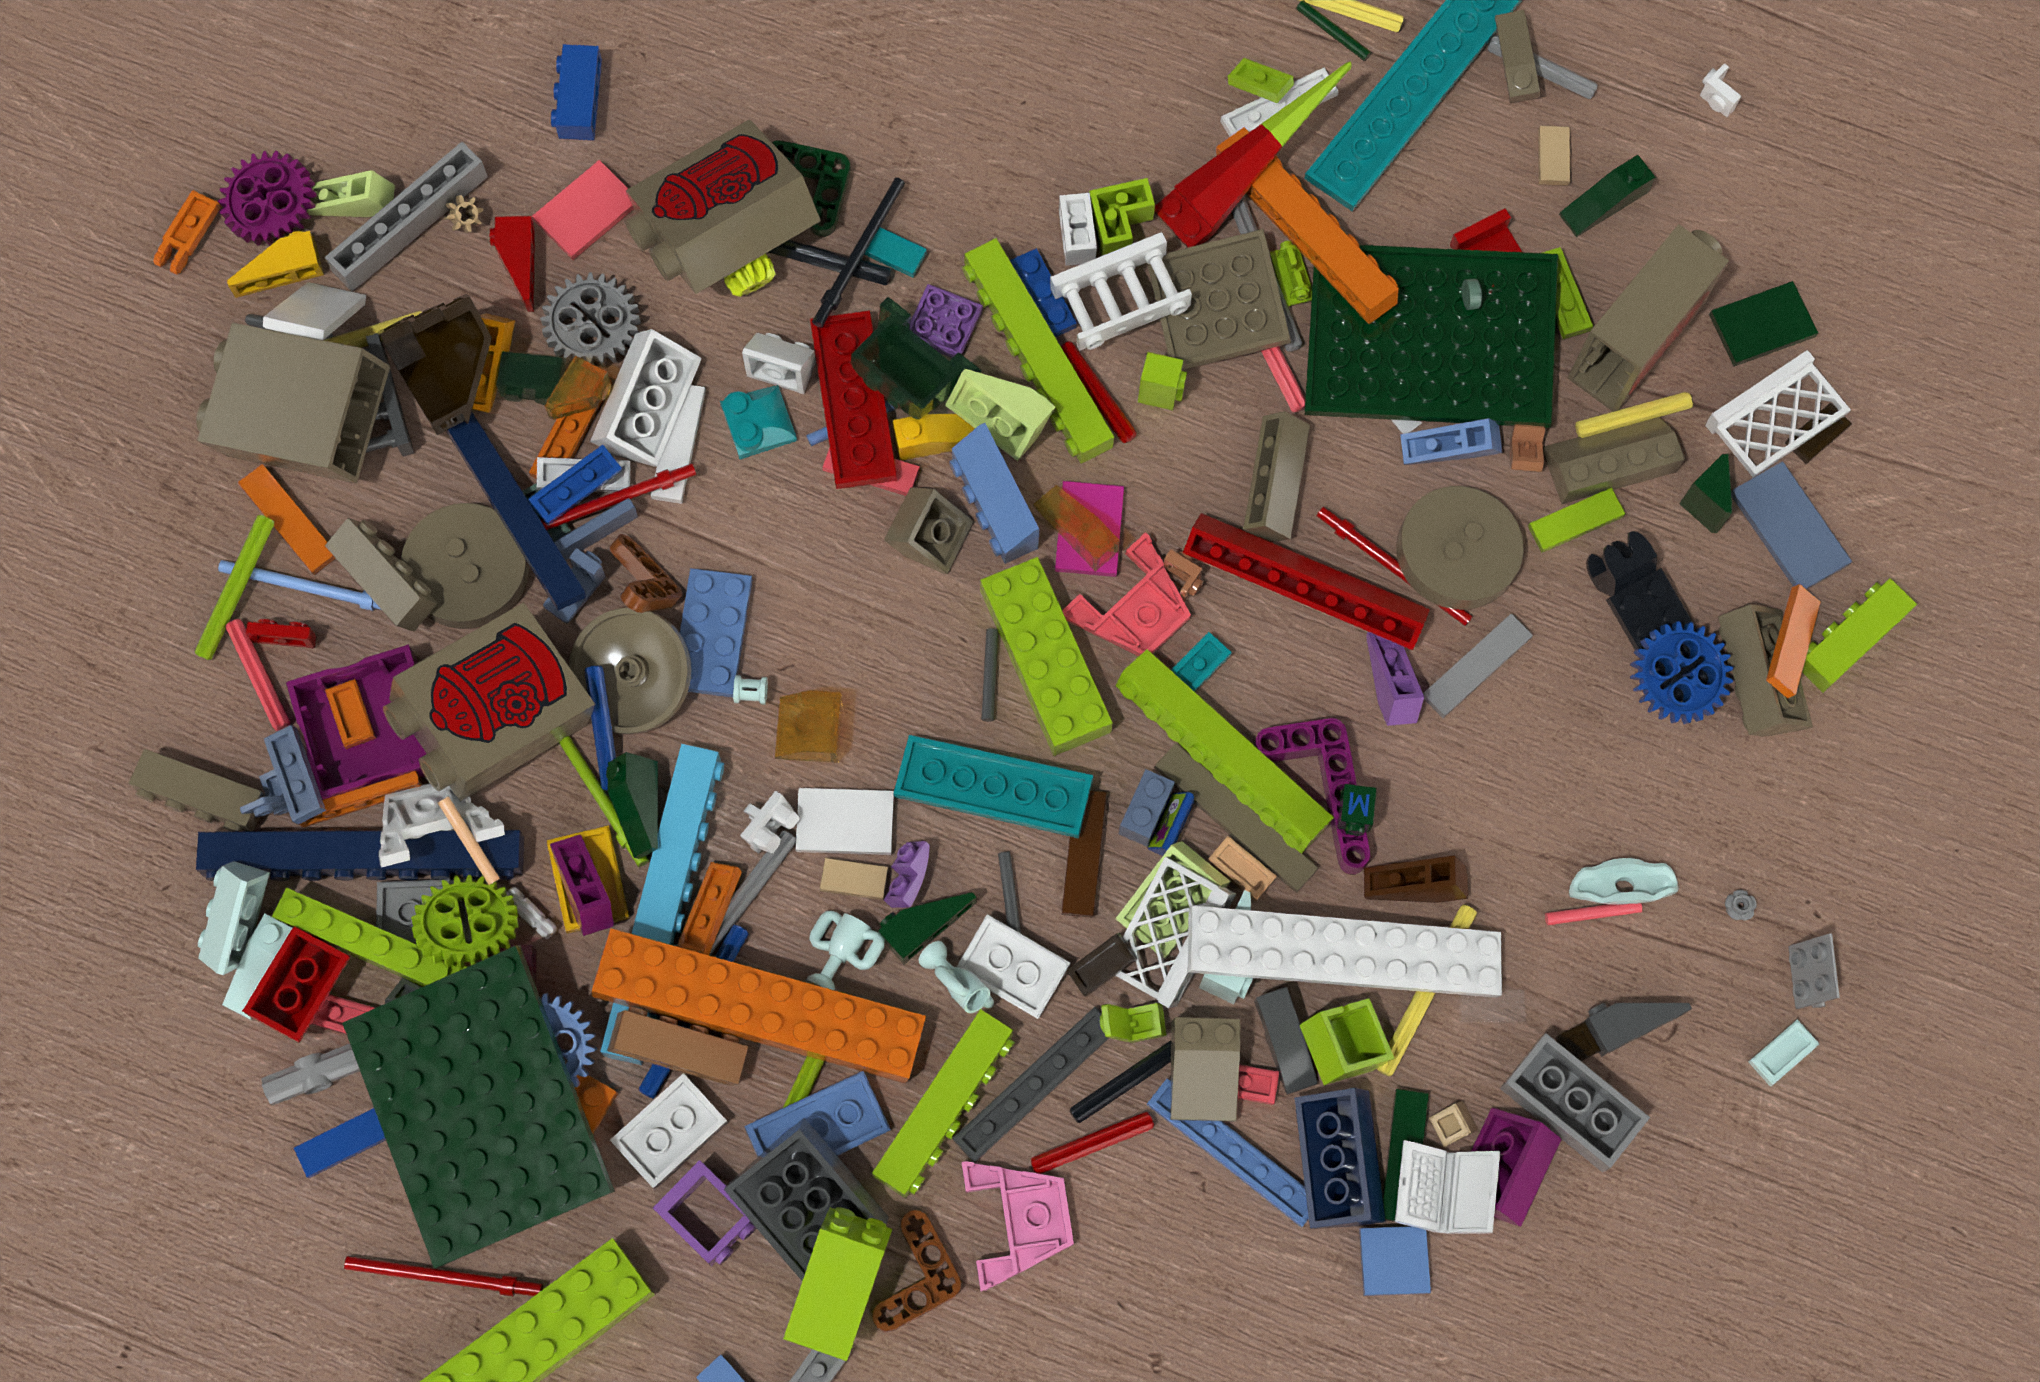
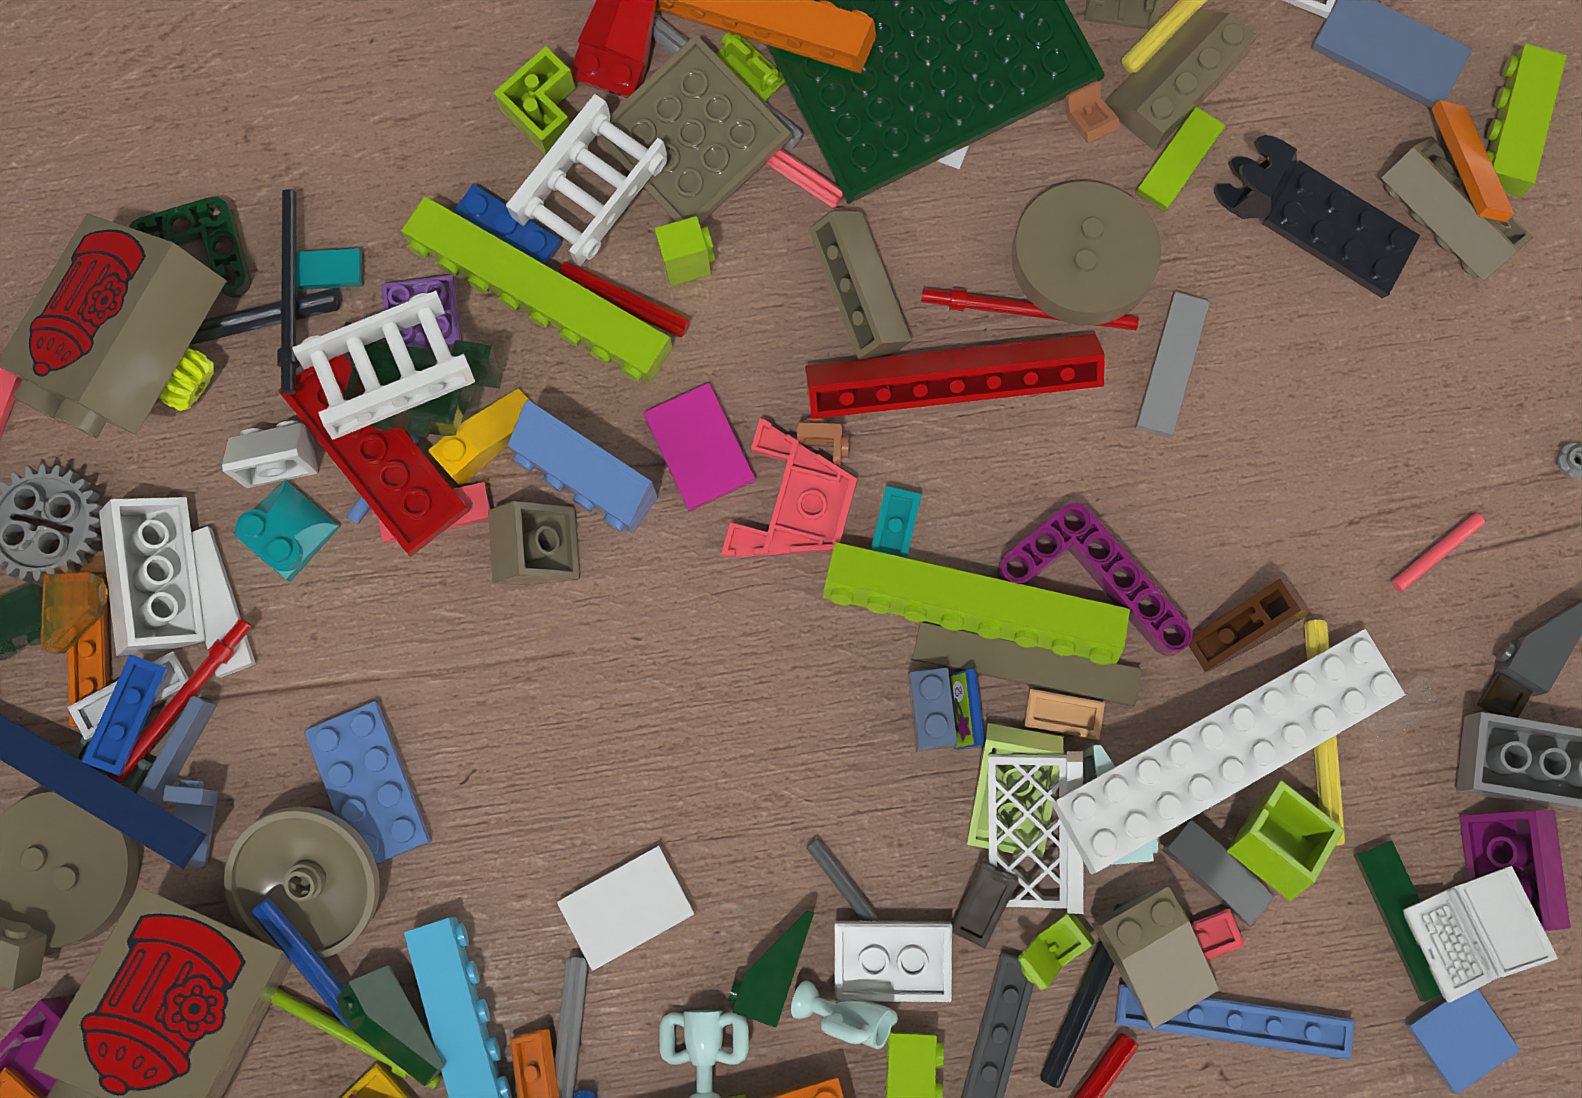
camera: 25 degrees left, 5 degrees up
(654, 587) = (279, 775): dark orange beam -> none
(741, 694) = (434, 835): light aqua bush -> none
(761, 831) = (544, 959): white hips -> none
(809, 726) = (530, 828): clear yellow slope -> none
(854, 879) = (672, 965): tan tile -> none
(896, 368) = (379, 400): none -> white fence
(911, 867) = (725, 915): medium lavender slope -> none
(989, 679) = (686, 661): dark grey bar -> none
(993, 786) = (760, 780): teal plate -> none
(1009, 409) = (545, 371): yellowish green slope -> none
(1045, 656) = (733, 608): lime brick -> none
(1077, 228) = (503, 139): white brick -> none
(1078, 527) = (687, 452): slope -> none
(1084, 861) = (894, 794): reddish brown tile -> none
(1339, 1159) = (1349, 968): dark blue slope -> none
(1356, 809) = (1152, 588): dark green brick -> none
(1394, 681) = (1104, 429): medium lavender slope -> none
(1452, 442) = (1012, 149): medium blue slope -> none
(1453, 1123) = (1433, 856): tan slope -> none
(1648, 881) = (1474, 487): light aqua piece -> none
(1666, 649) = (1413, 270): blue gear -> none
(1710, 496) = (1304, 57): dark green slope -> none

